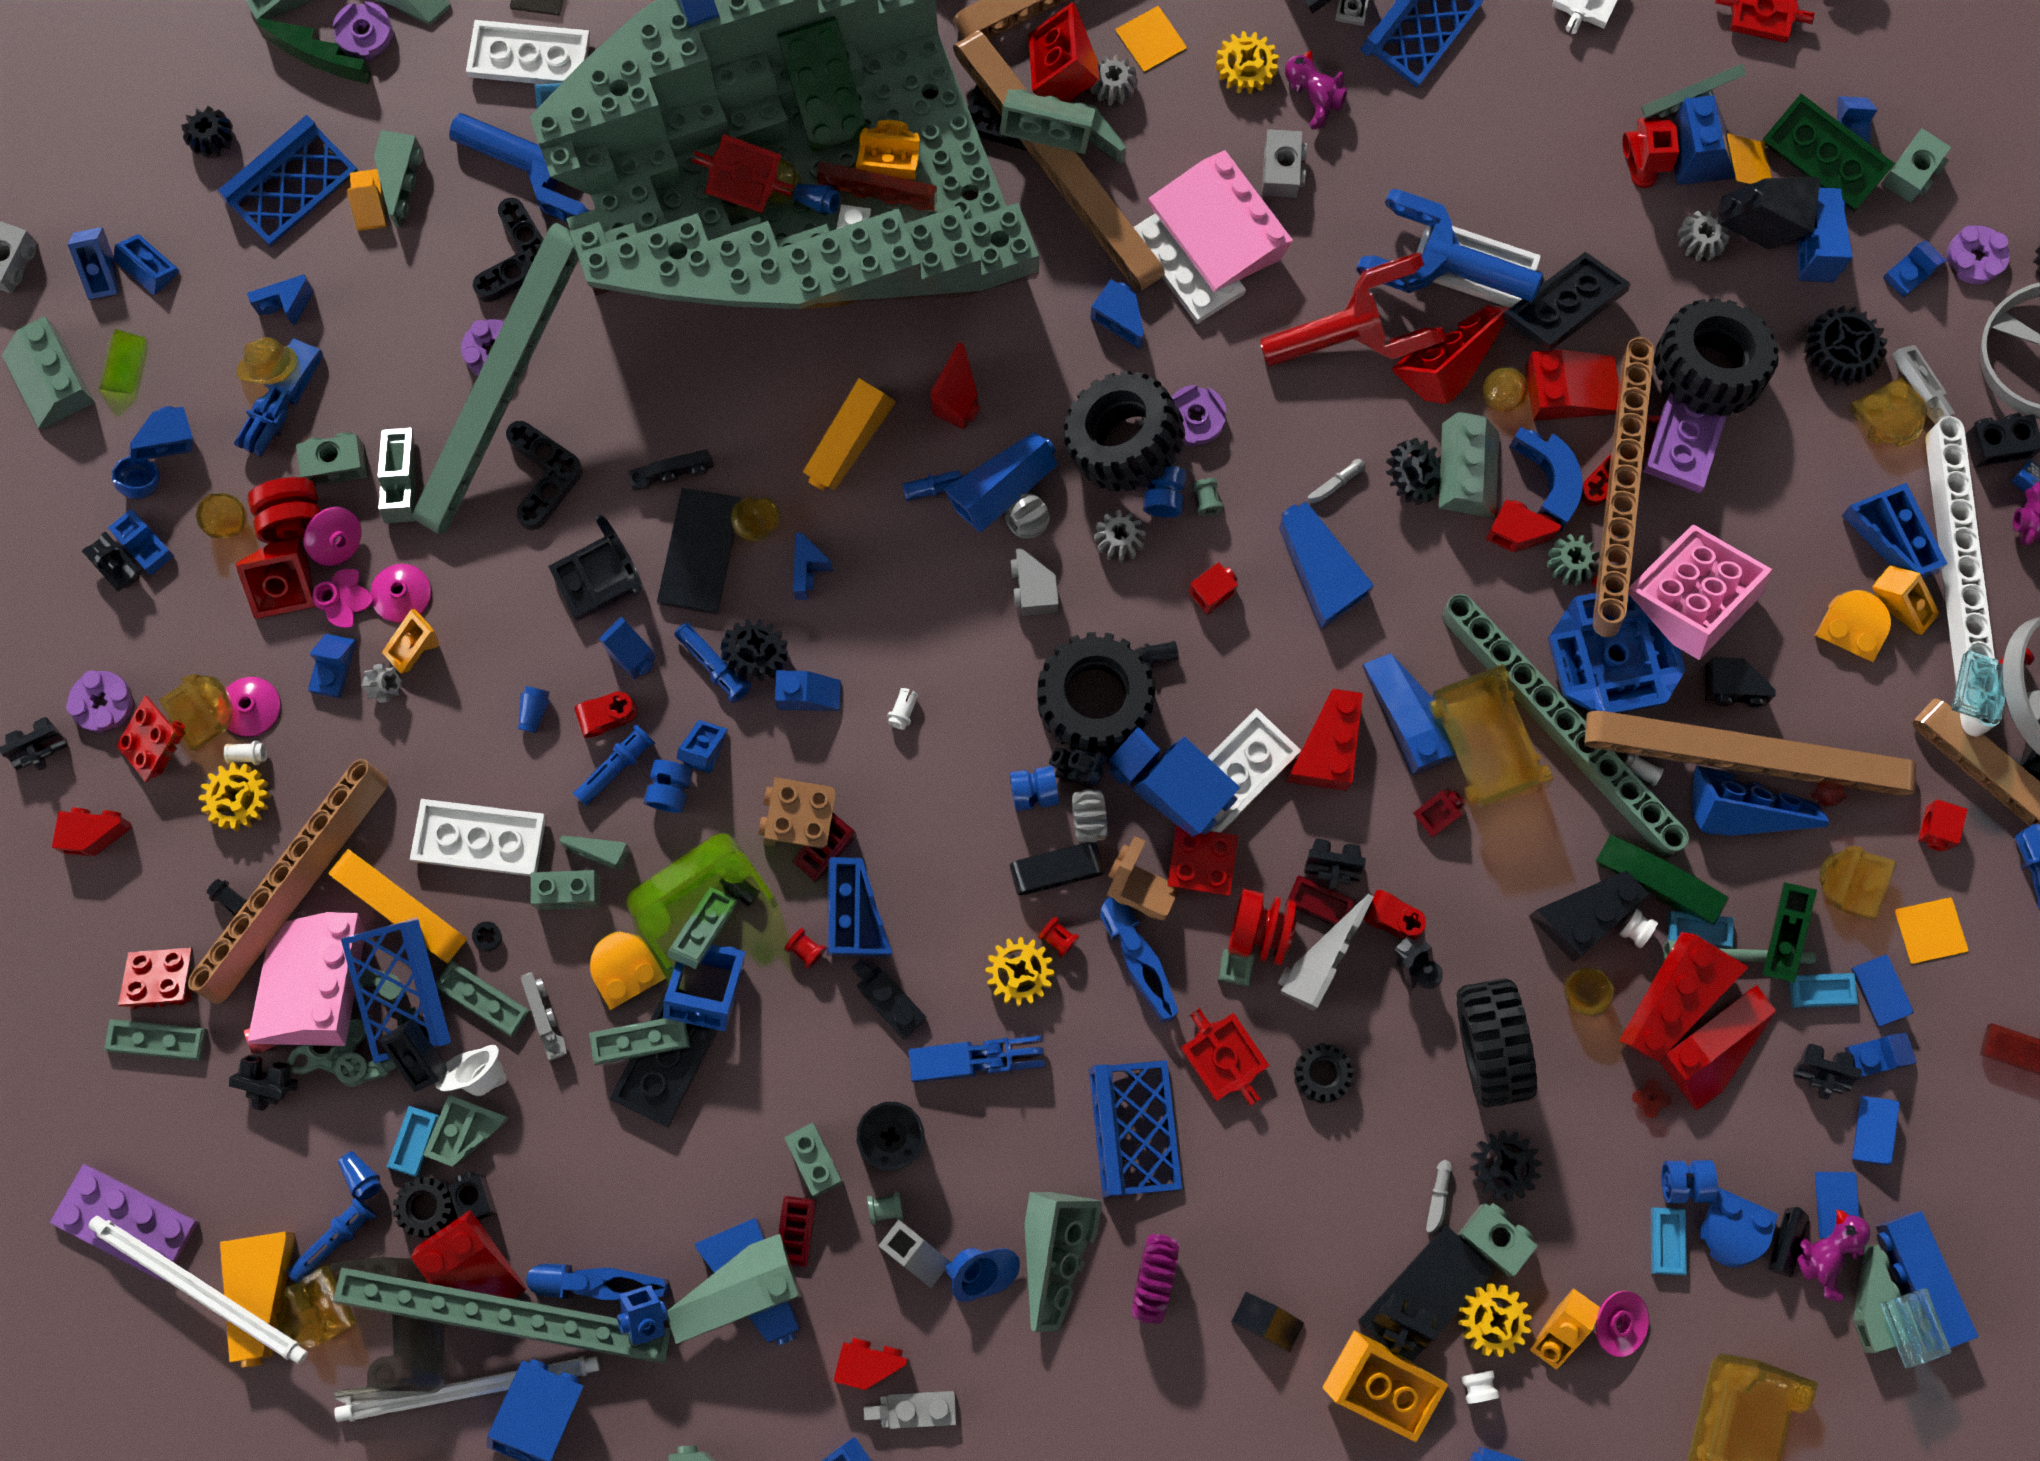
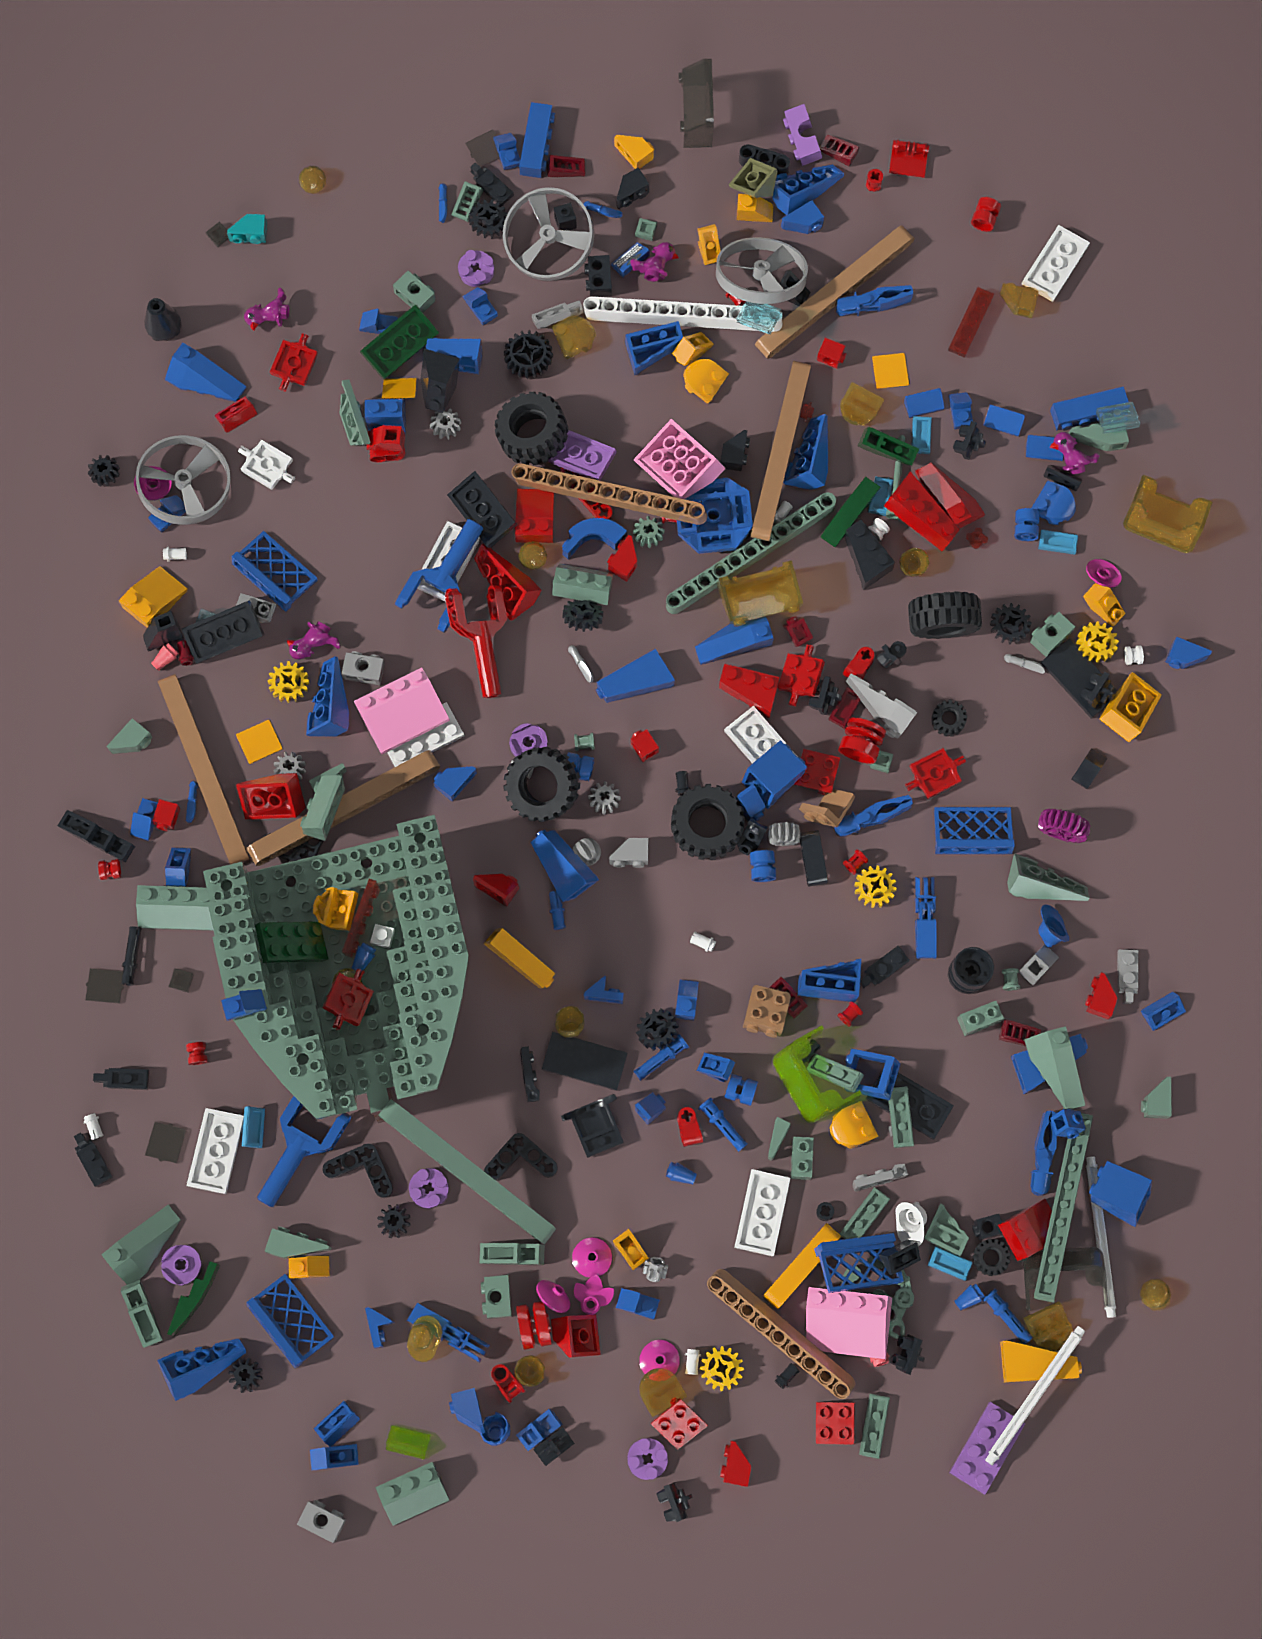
camera: 85 degrees left, 0 degrees up
(203, 482) = (507, 1383): none -> red piece
(214, 59) = (192, 1370): none -> blue wedge
(433, 294) = (388, 1218): none -> black gear
(1208, 127) = (331, 709): none -> blue wedge
(1364, 822) = (801, 675): none -> red plate

